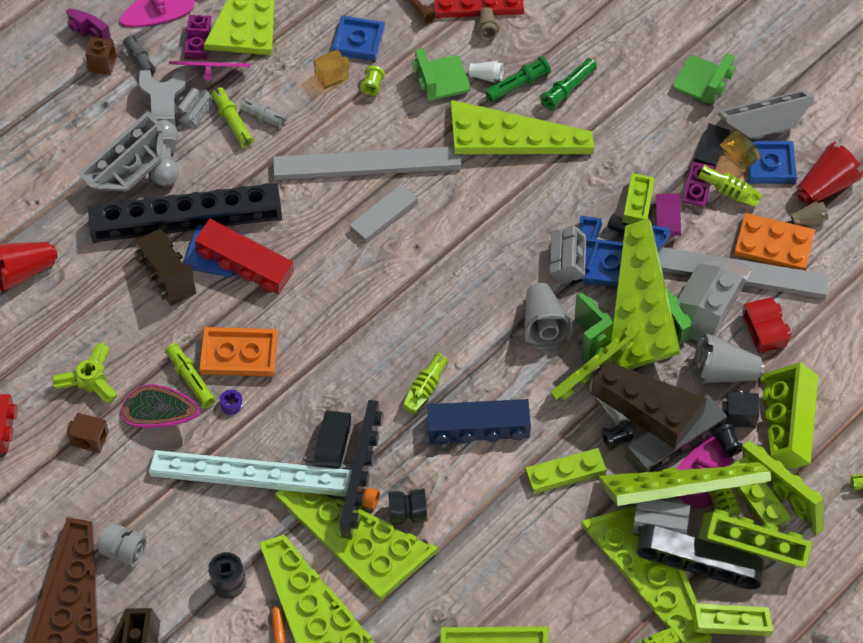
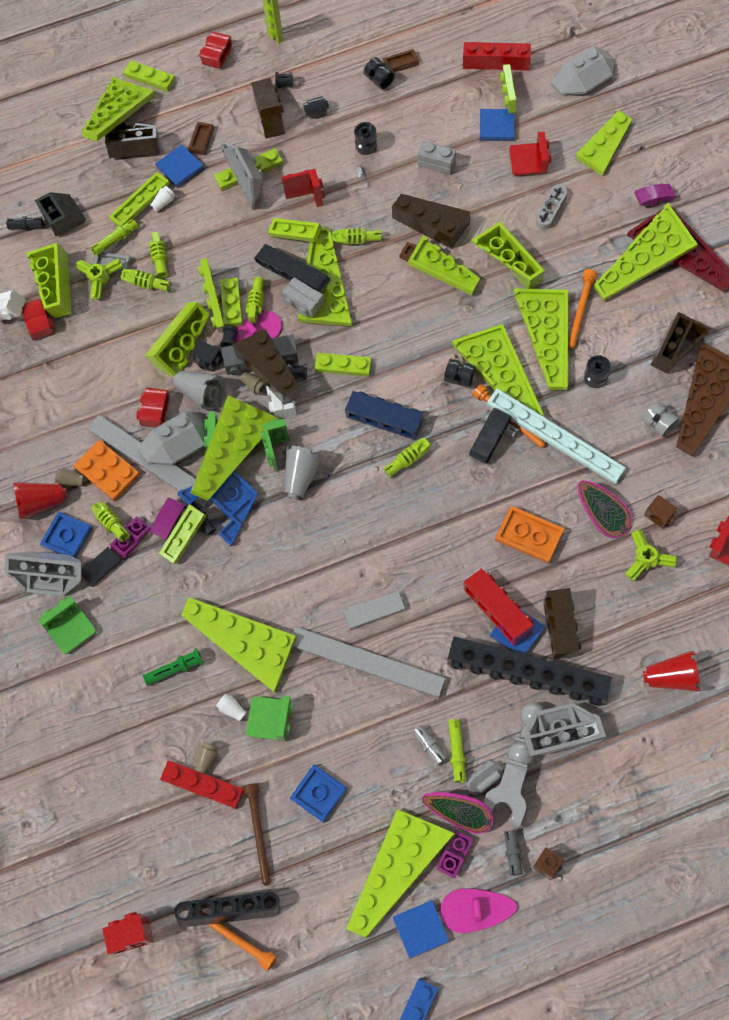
camera: 150 degrees left, 10 degrees up
(86, 23) = (553, 912): magenta slope -> none
(185, 368) = (577, 550): lime pin -> none
(231, 409) = (549, 494): dark purple bush -> none
(331, 68) = (355, 763): clear yellow brick -> none
(360, 476) = (475, 410): black plate -> none
(372, 80) = (327, 738): lime bush -> none
(527, 75) = (201, 690): green pin -> none
(567, 255) = (258, 511): light grey brick -> none
(585, 373) = (292, 410): lime wing -> none
(672, 482) = (286, 310): lime wing -> none
(740, 150) = (84, 545): clear yellow brick -> none
(754, 539) = (254, 261): lime brick -> none

